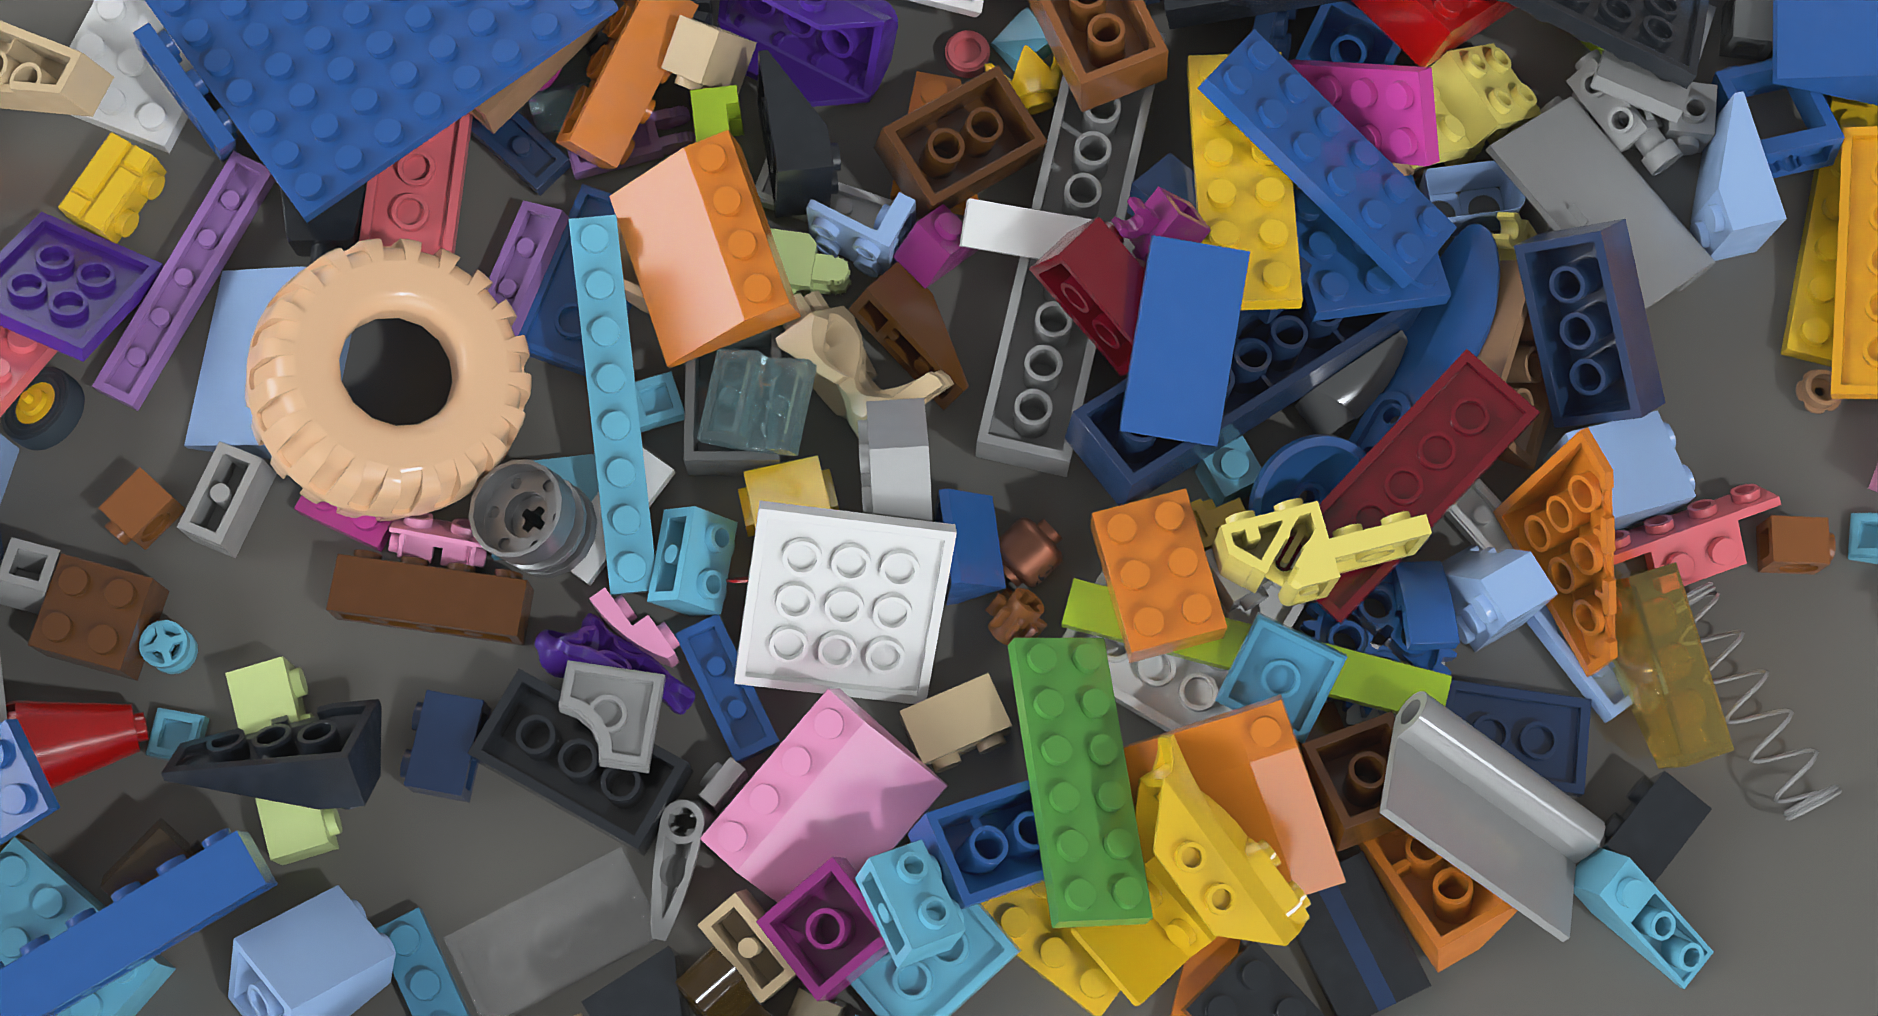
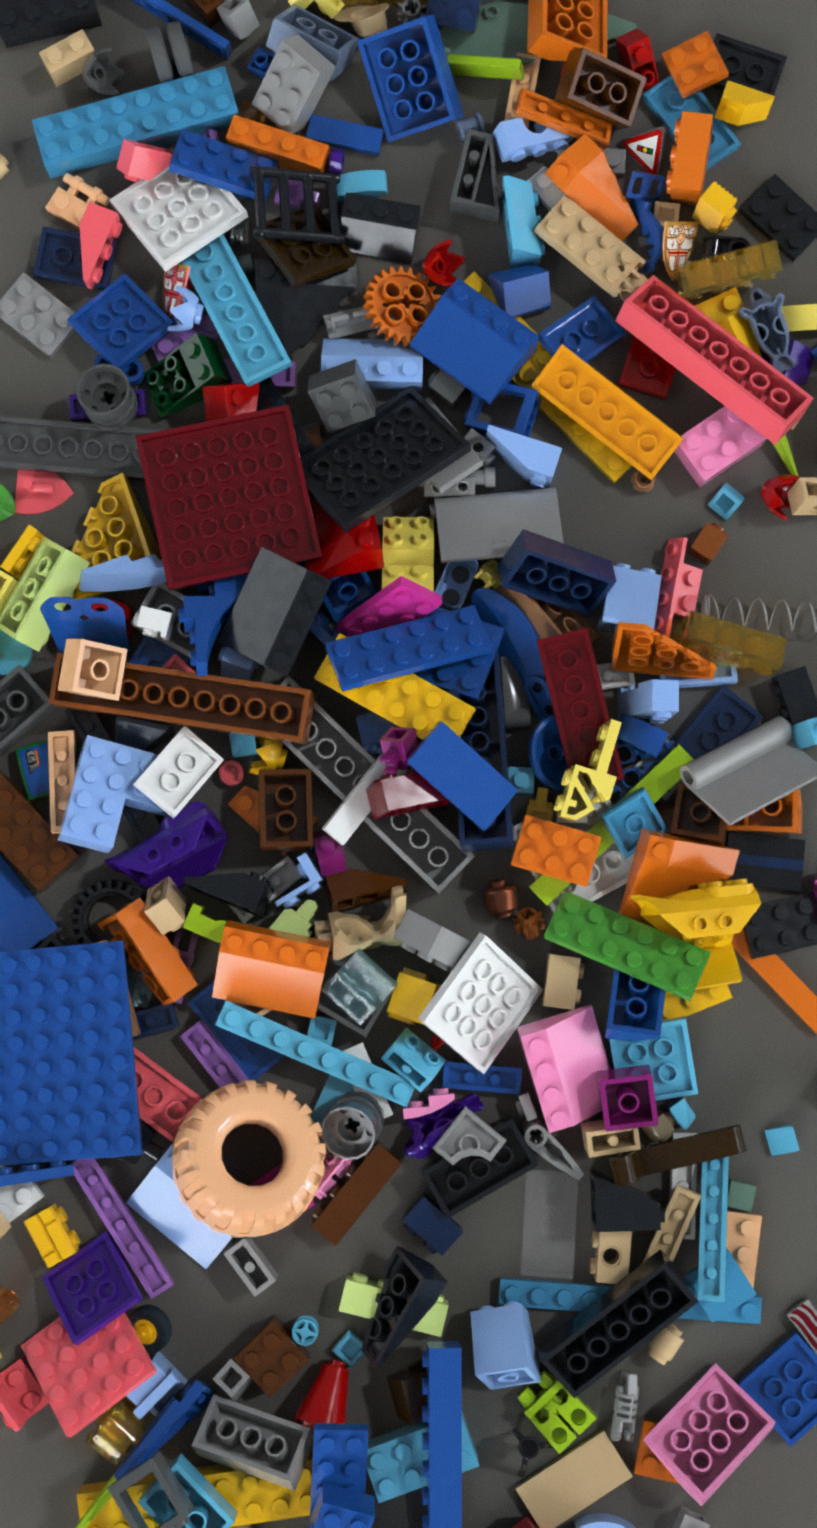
camera: 55 degrees left, 10 degrees up
(140, 510) = (229, 1308): dark orange brick -> none
(910, 903) = (643, 1058): medium azure brick -> none
(976, 555) = (478, 920): blue slope -> none

